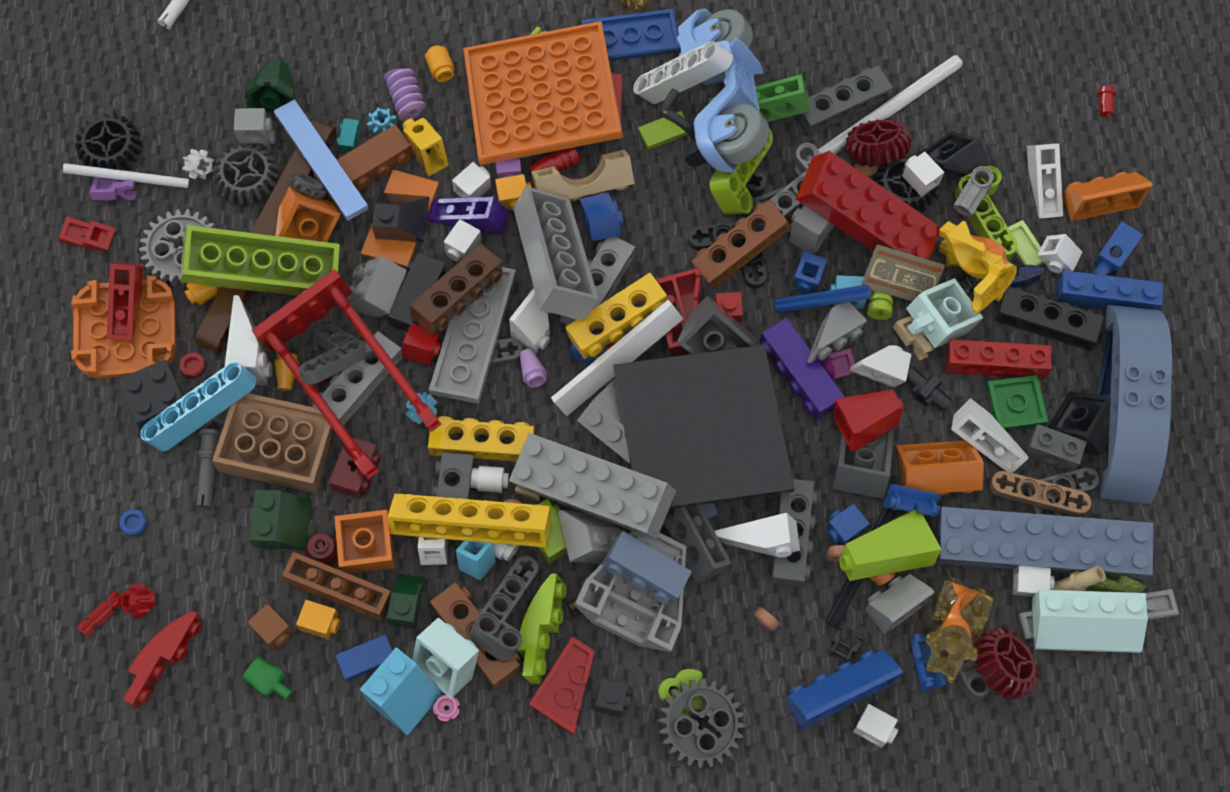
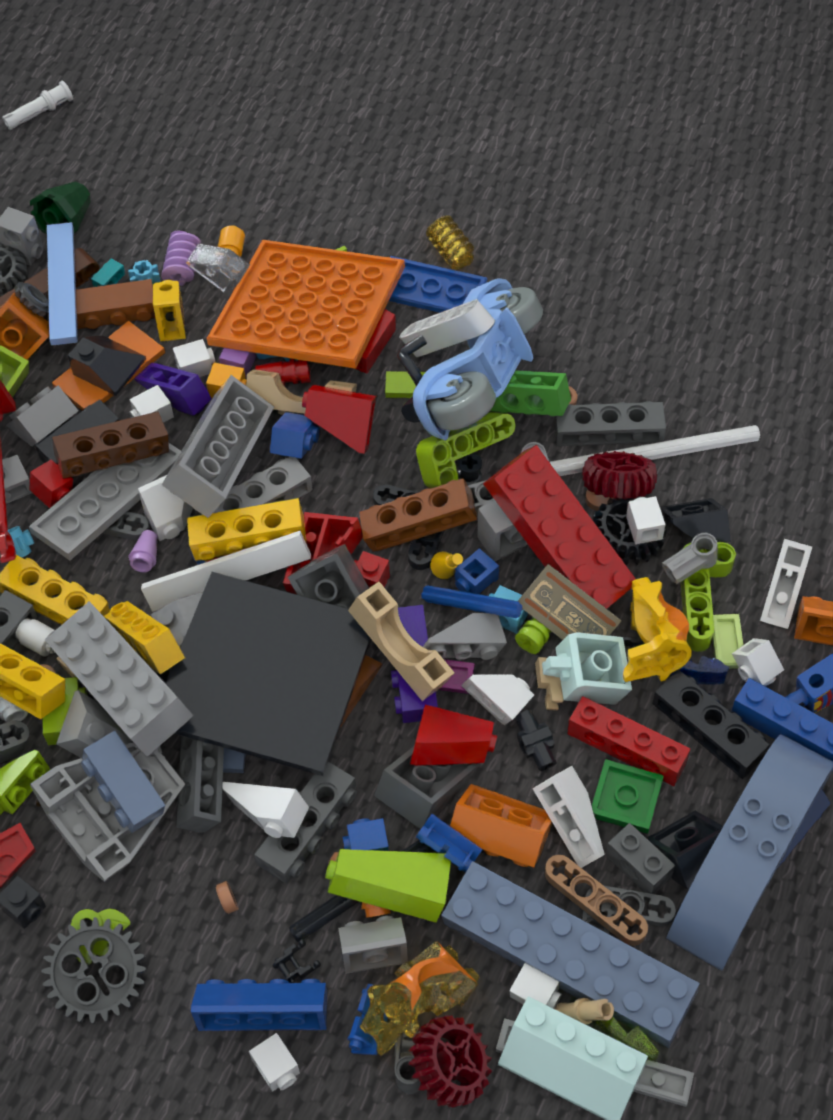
camera: 30 degrees right, 10 degrees down
(445, 89) = (218, 266): none -> clear slope
(599, 441) = (146, 636): none -> yellow brick
(631, 181) = (342, 414): none -> red slope
(781, 275) = (444, 564): none -> yellow cone
(823, 372) = (379, 618): none -> tan arch

